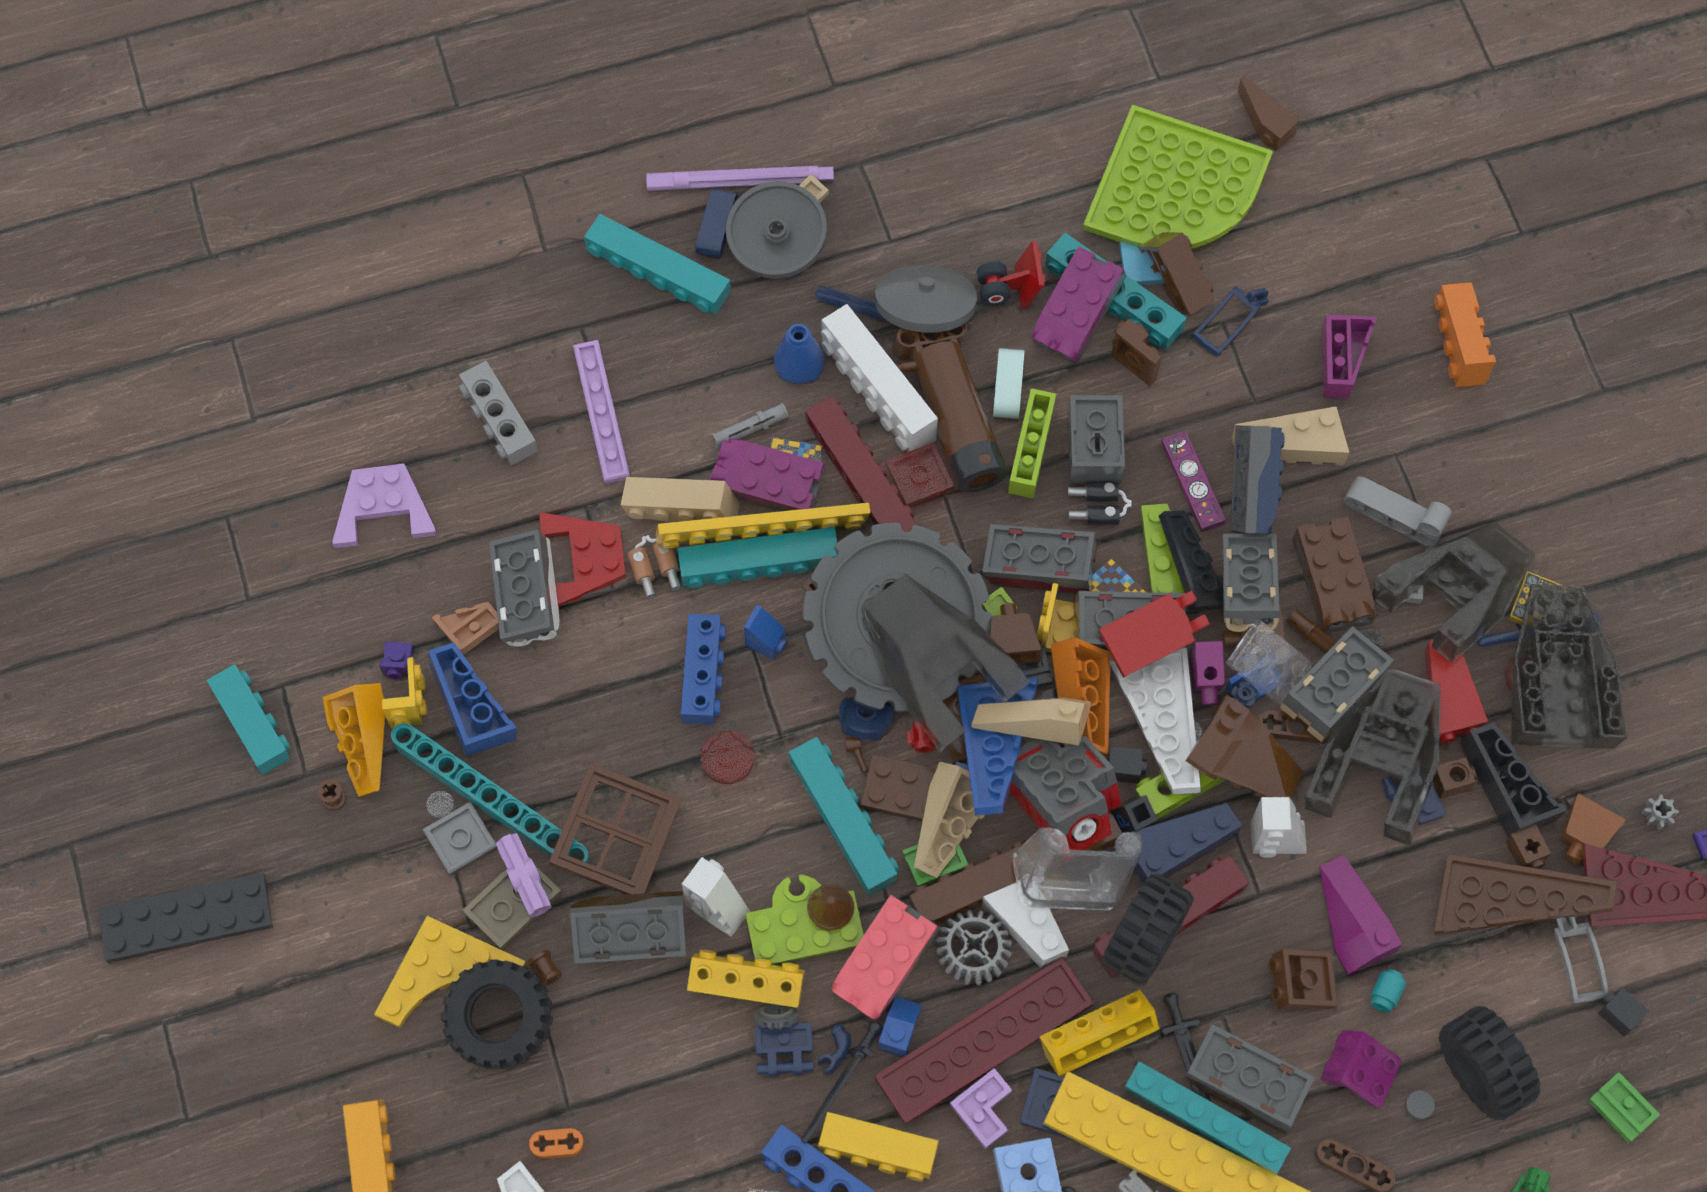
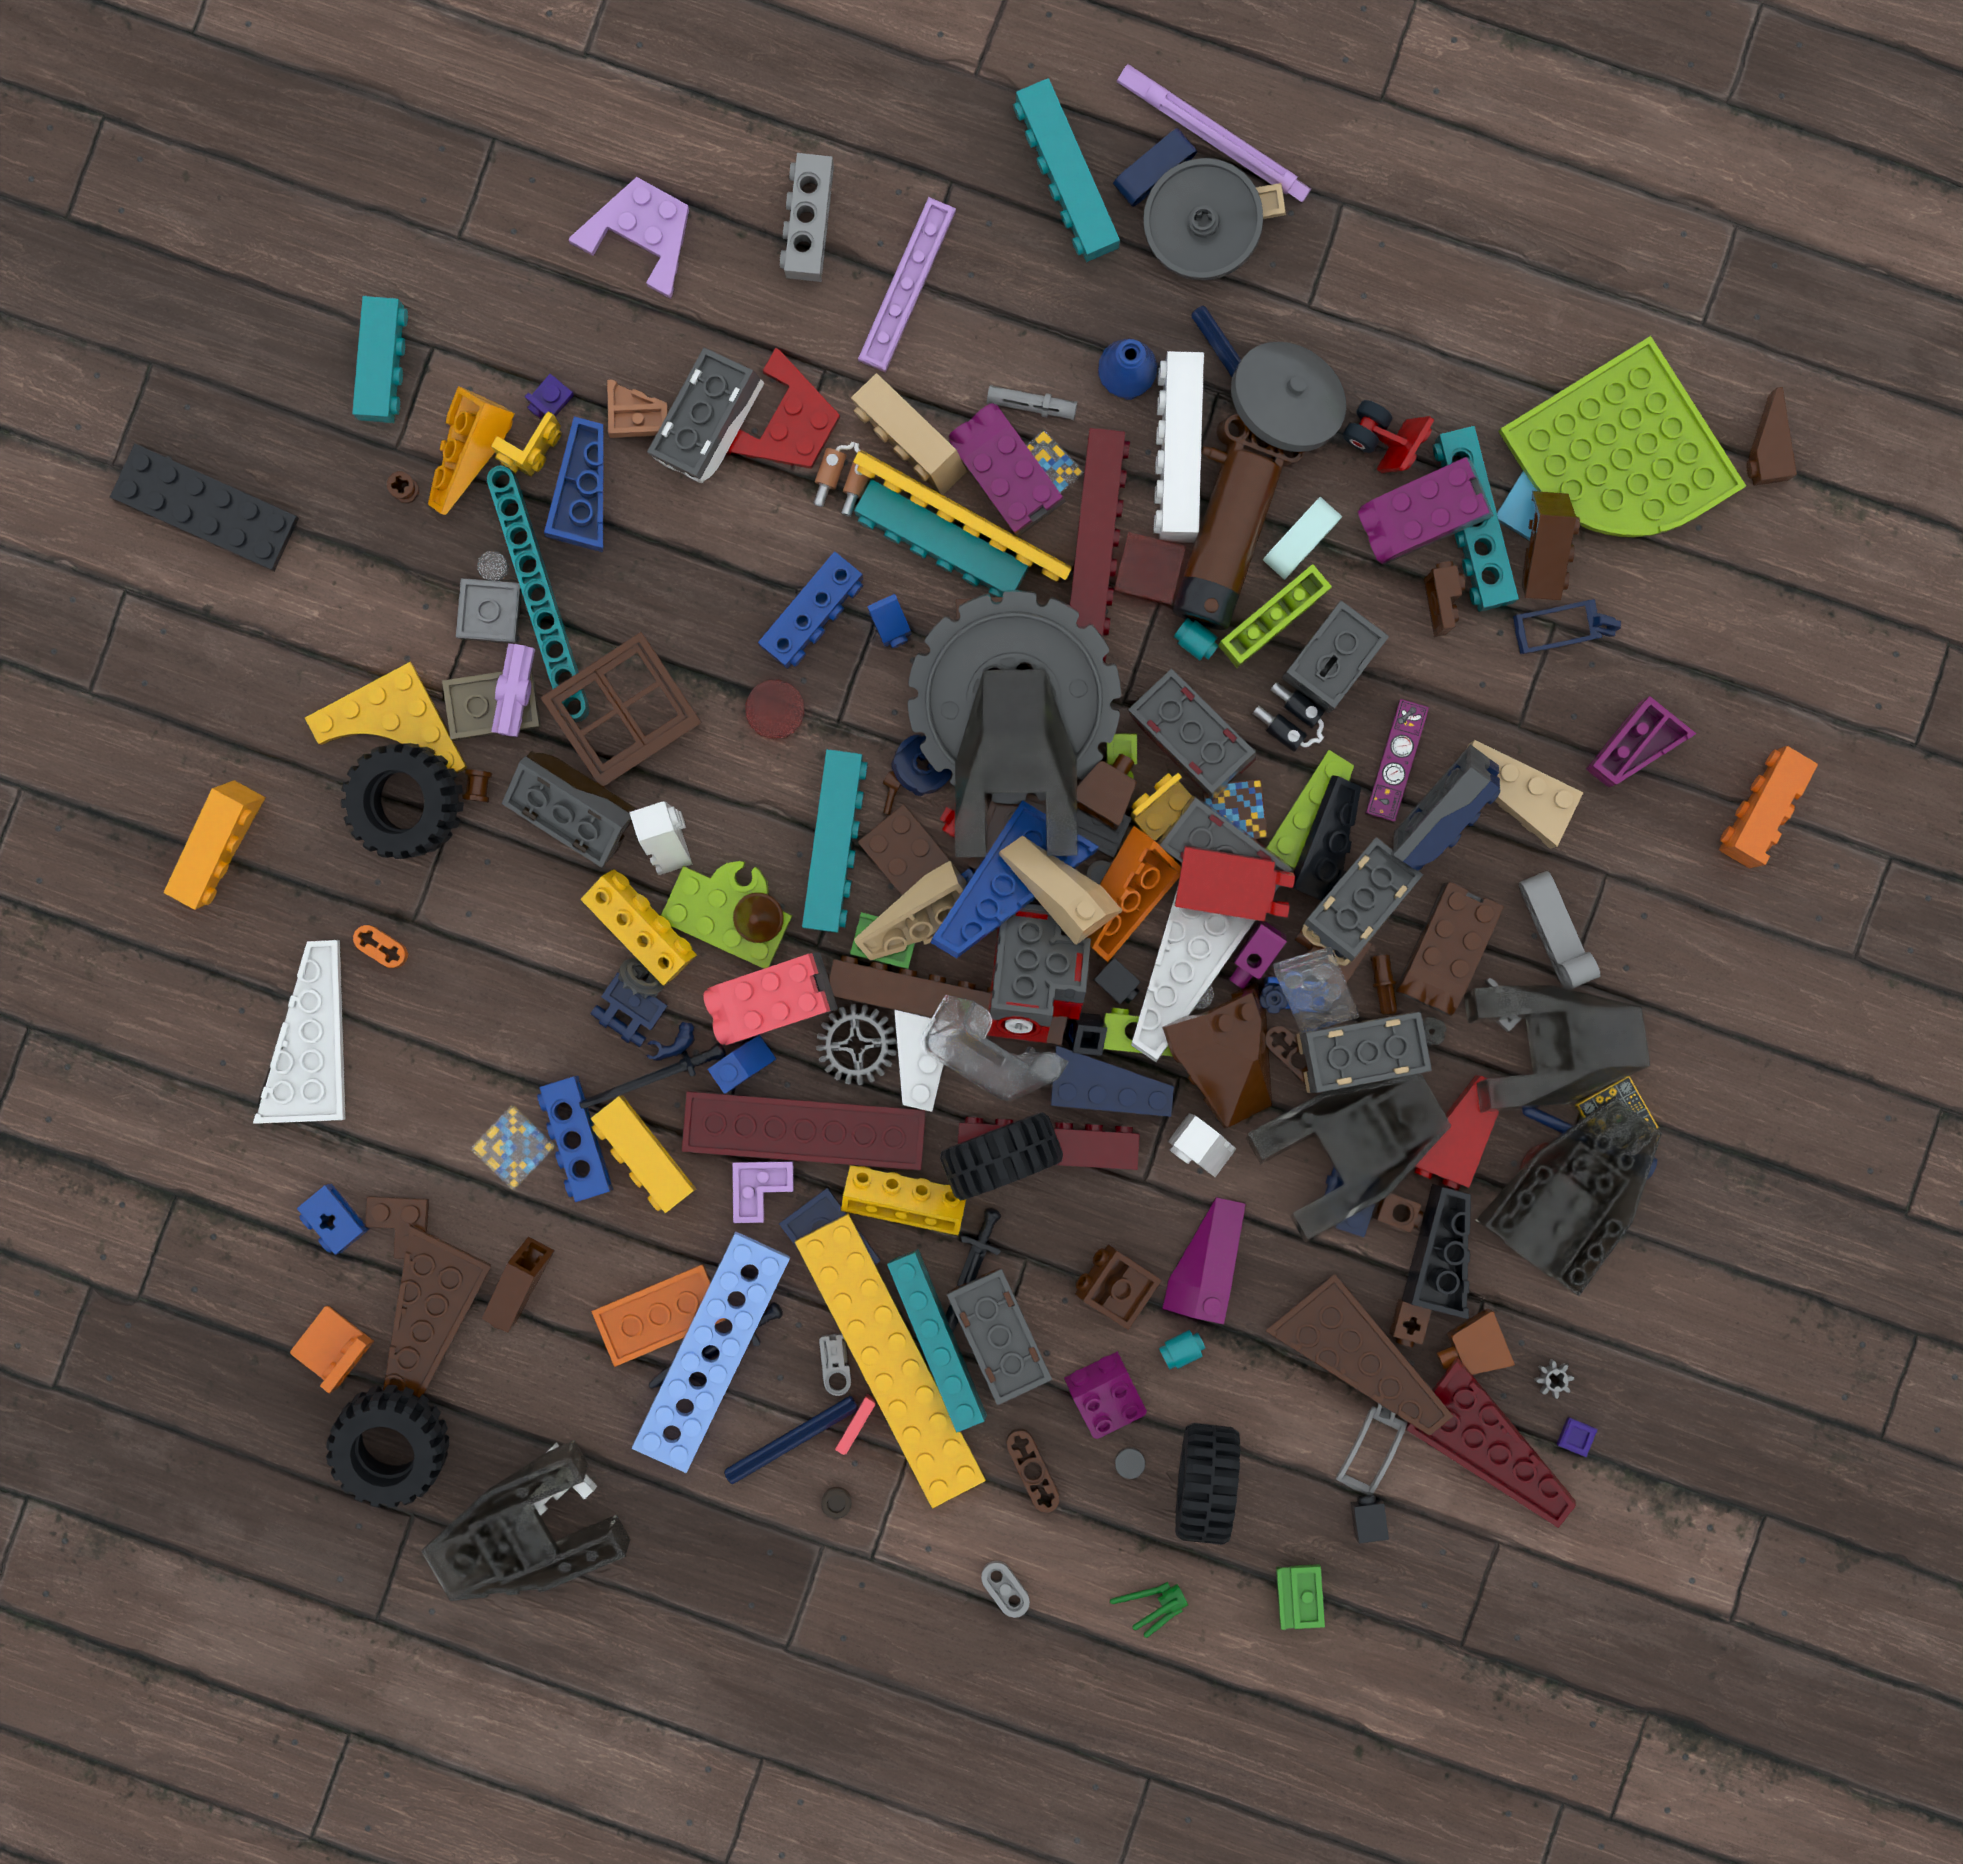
camera: 40 degrees right, 20 degrees up
(991, 497) = (1196, 639): none -> teal brick

